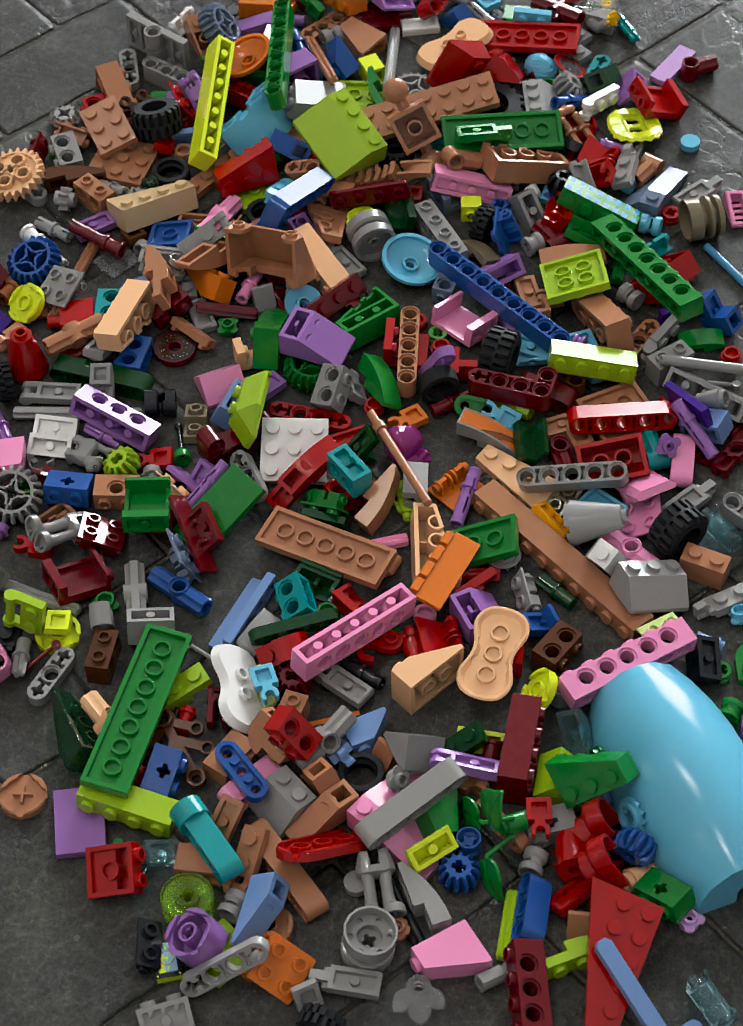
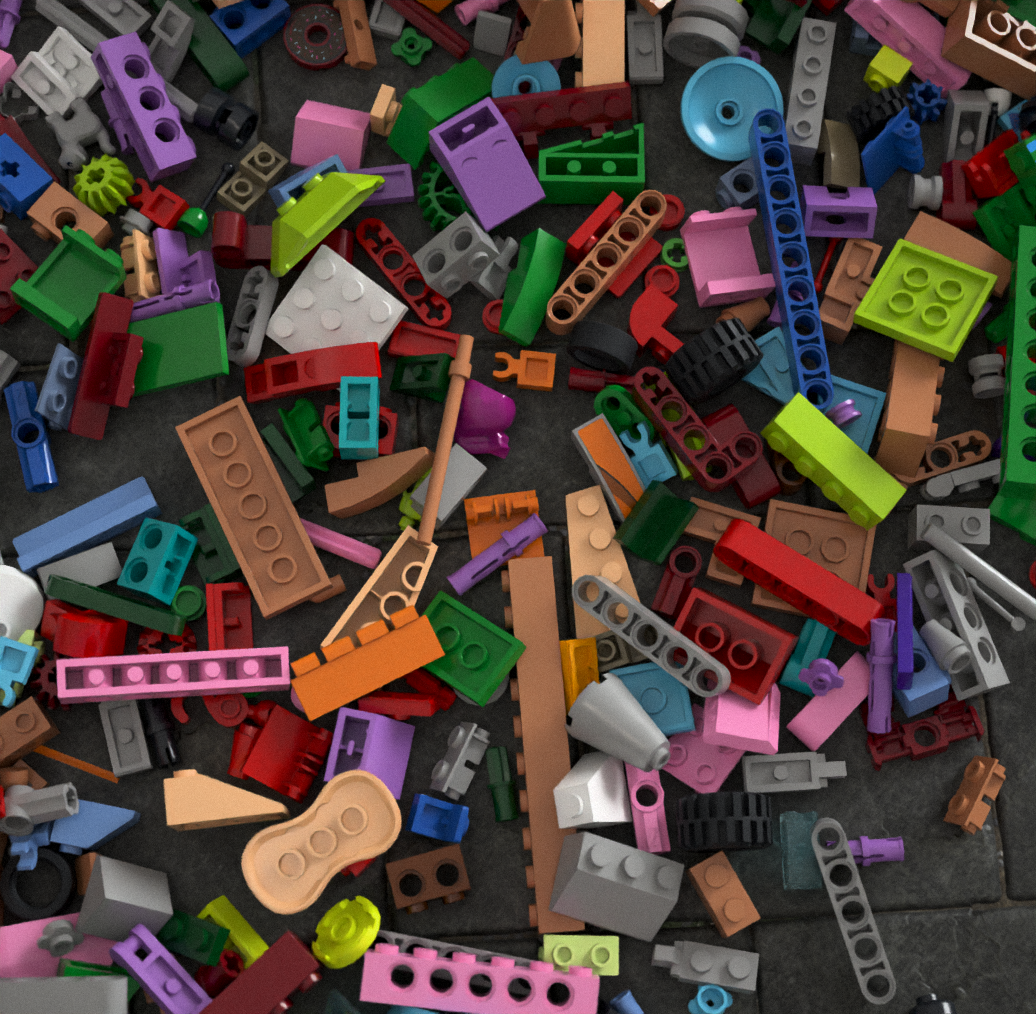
camera: 30 degrees right, 25 degrees up
(441, 356) = (618, 317): medium lavender beam -> none

